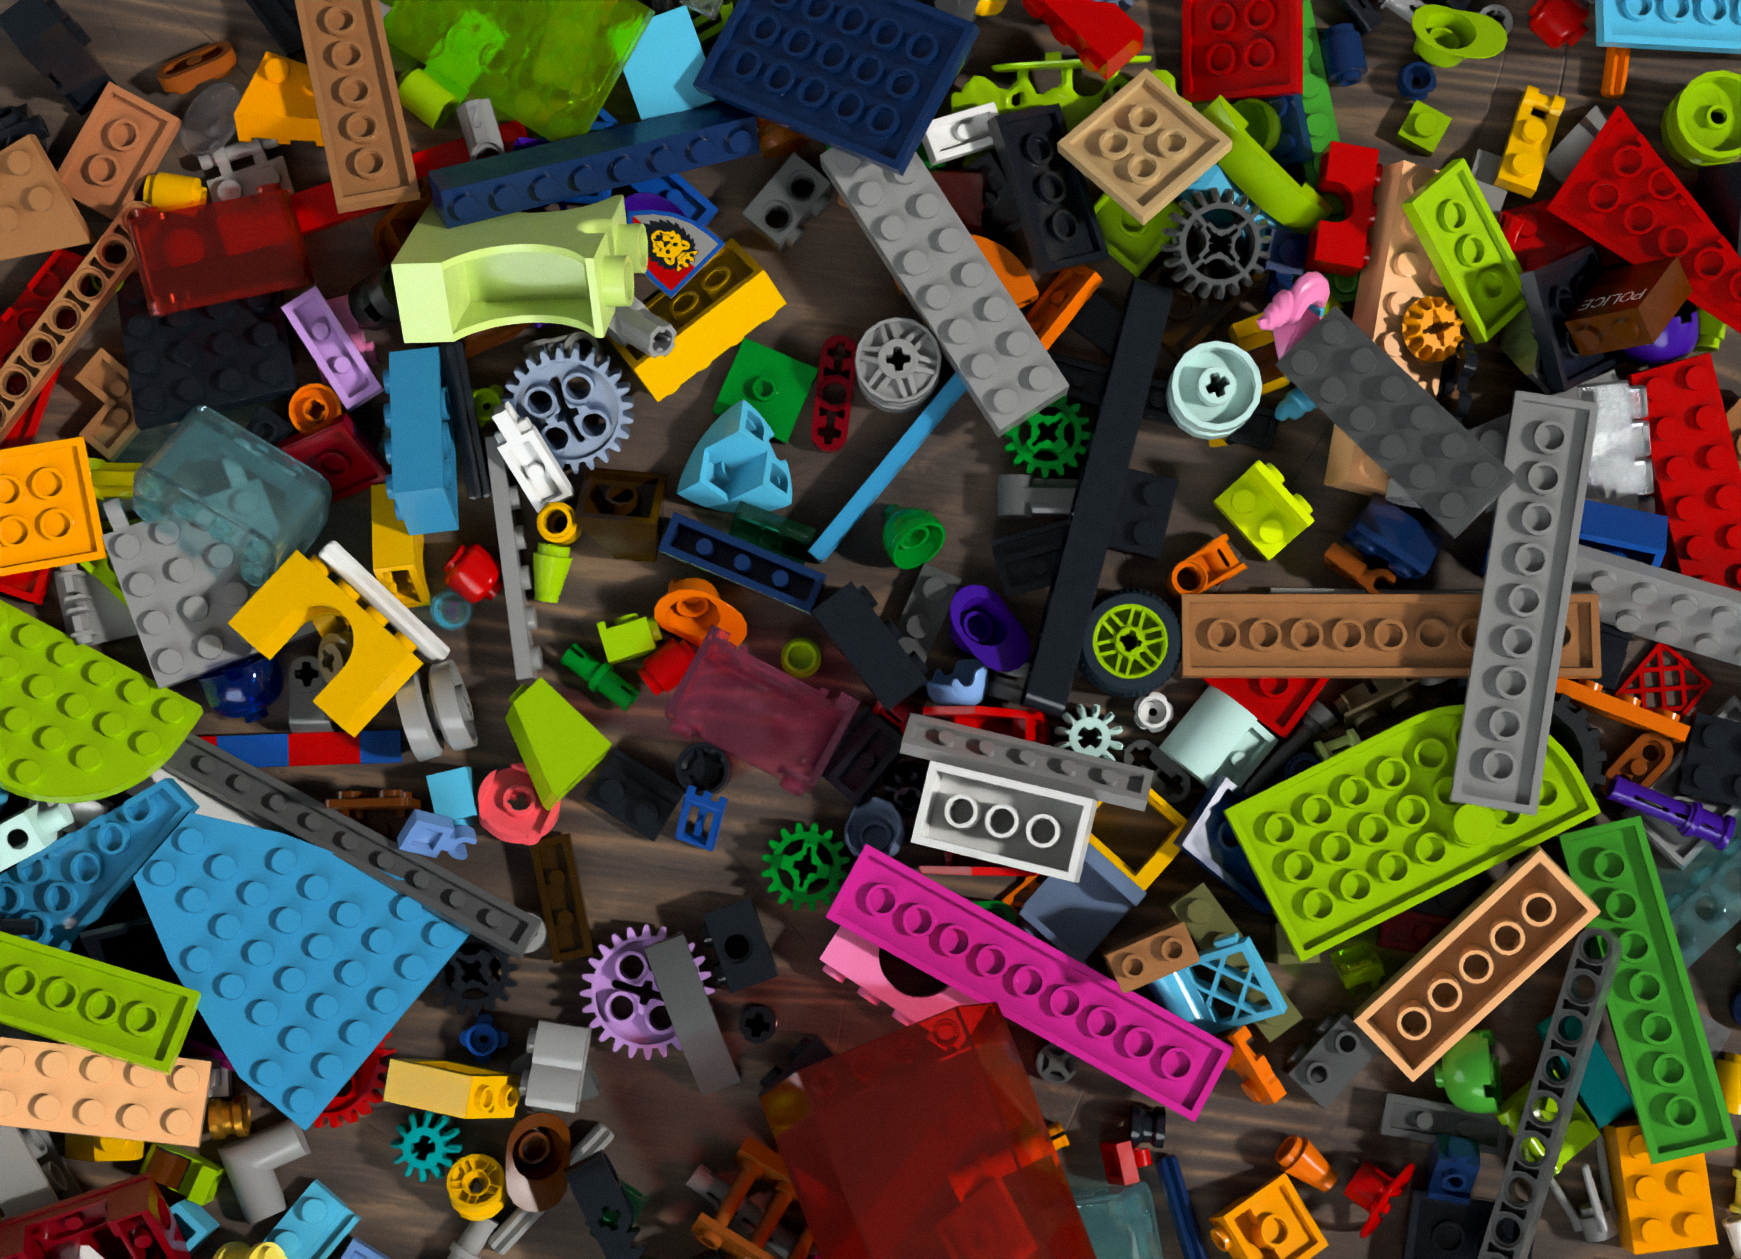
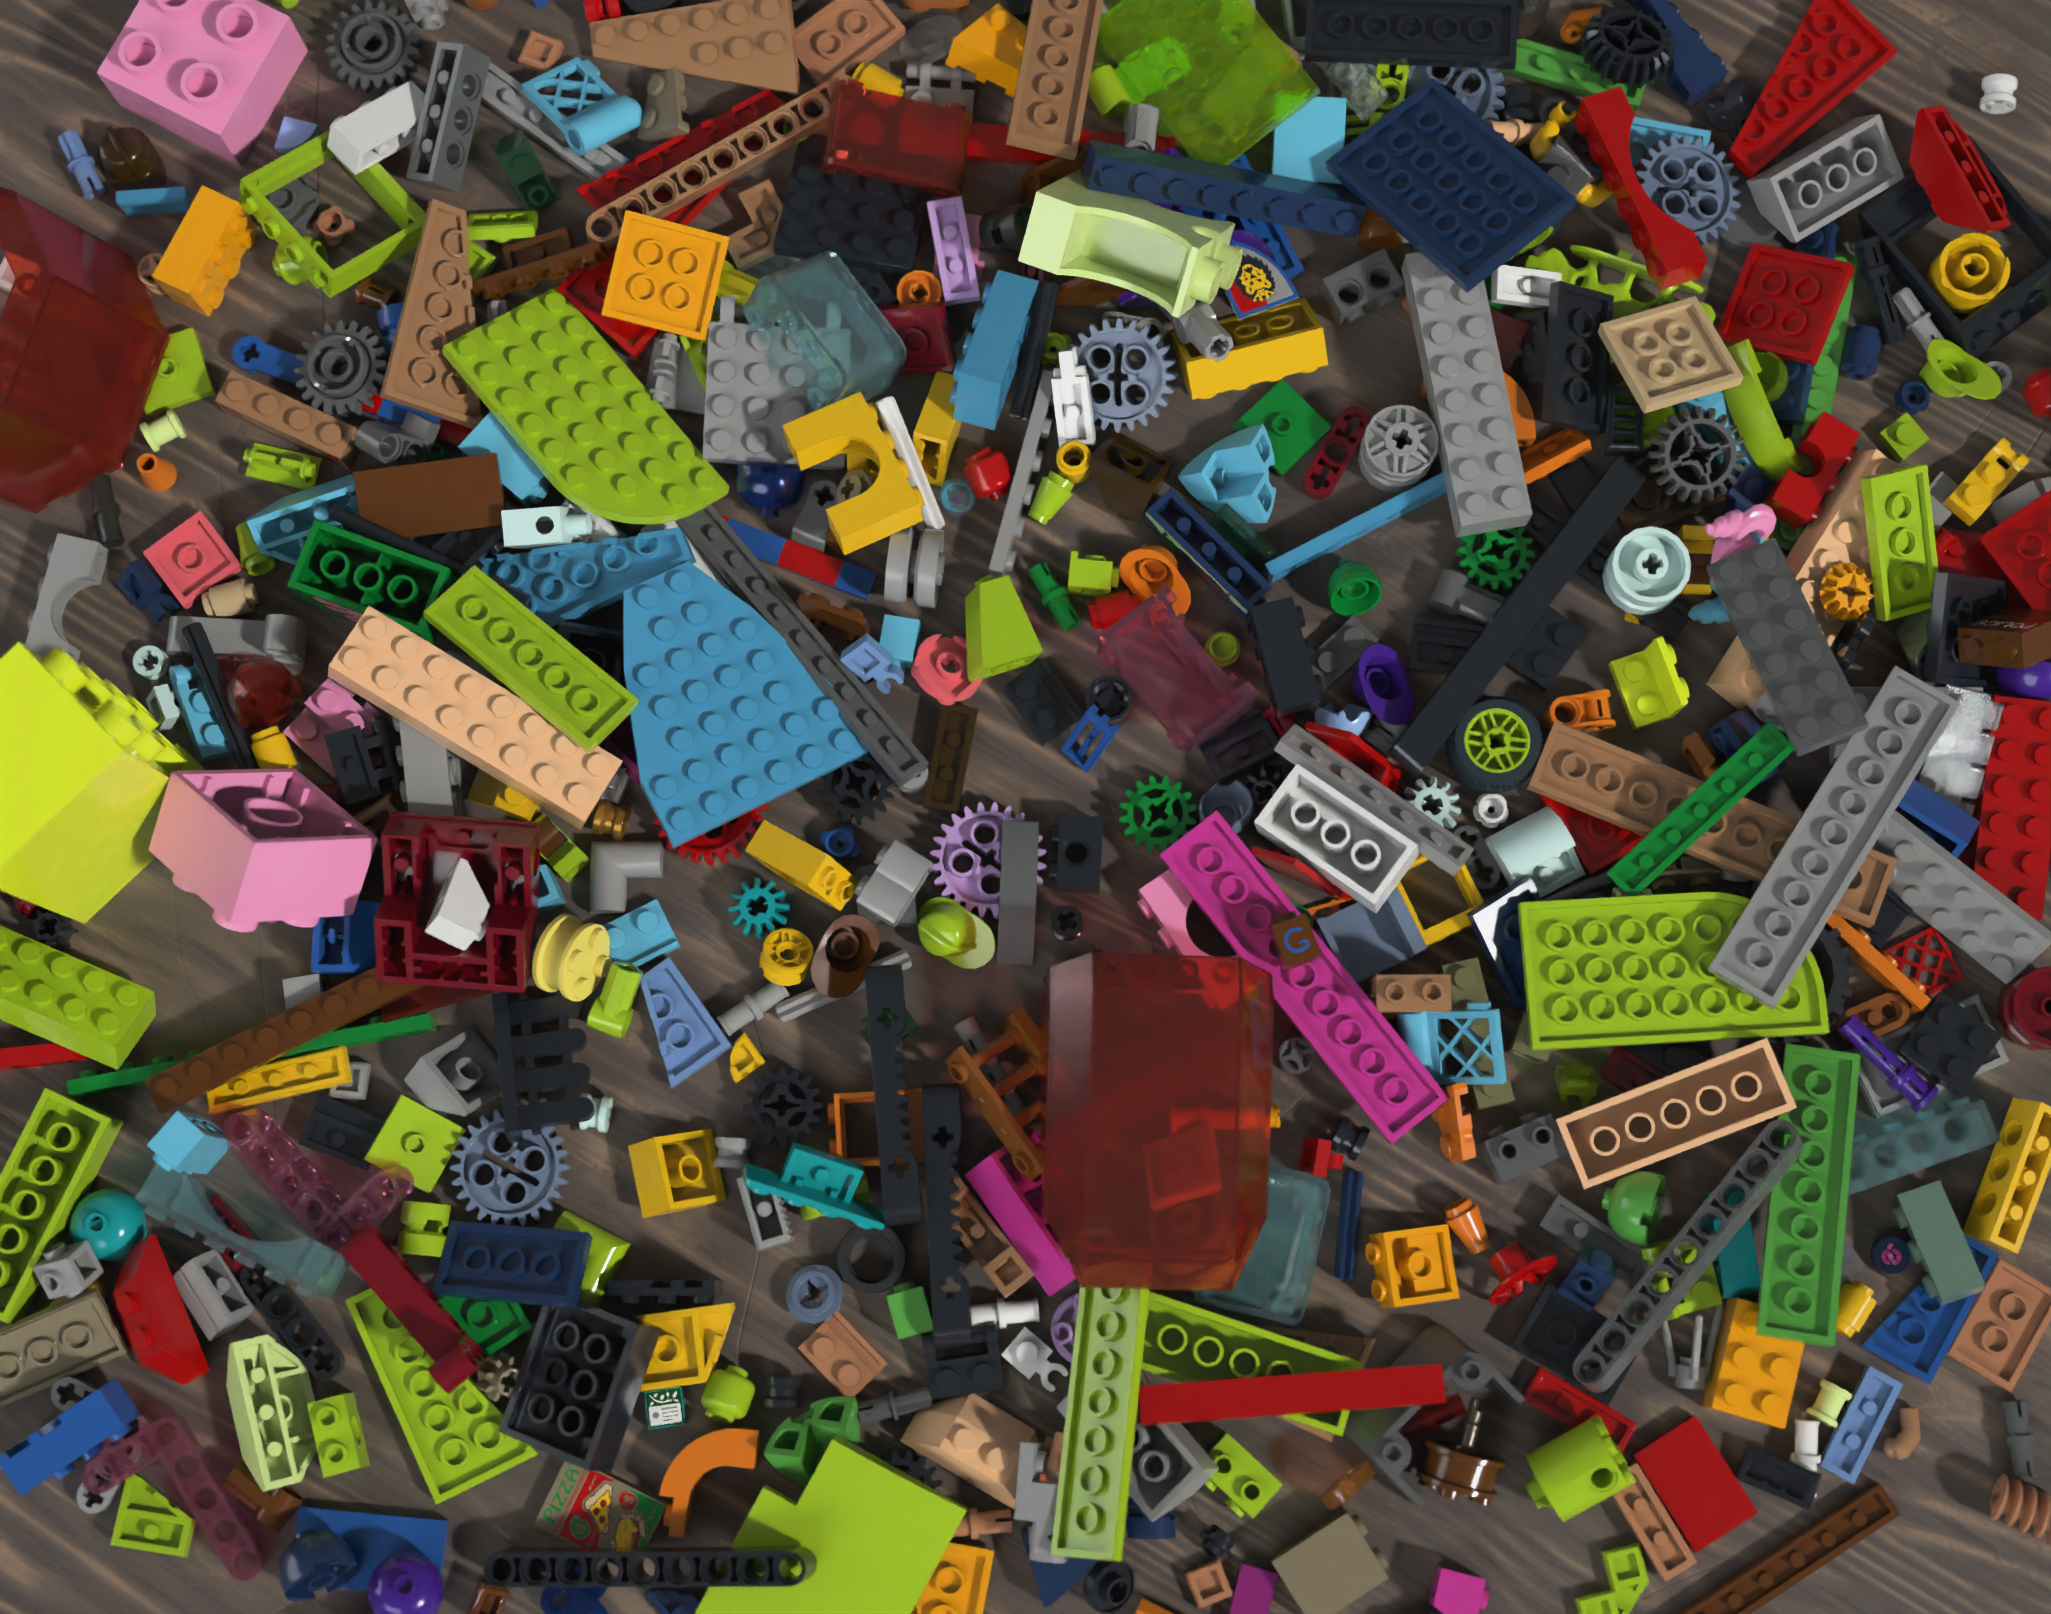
camera: 20 degrees right, 5 degrees down
(644, 1085) = (955, 933): none -> lime piece
(1005, 953) = (1294, 940): none -> reddish brown brick
(1132, 266) = (1623, 448): none -> black slope
(1373, 632) = (1700, 810): none -> green plate
(1473, 824) = (1719, 996): lime tile -> none

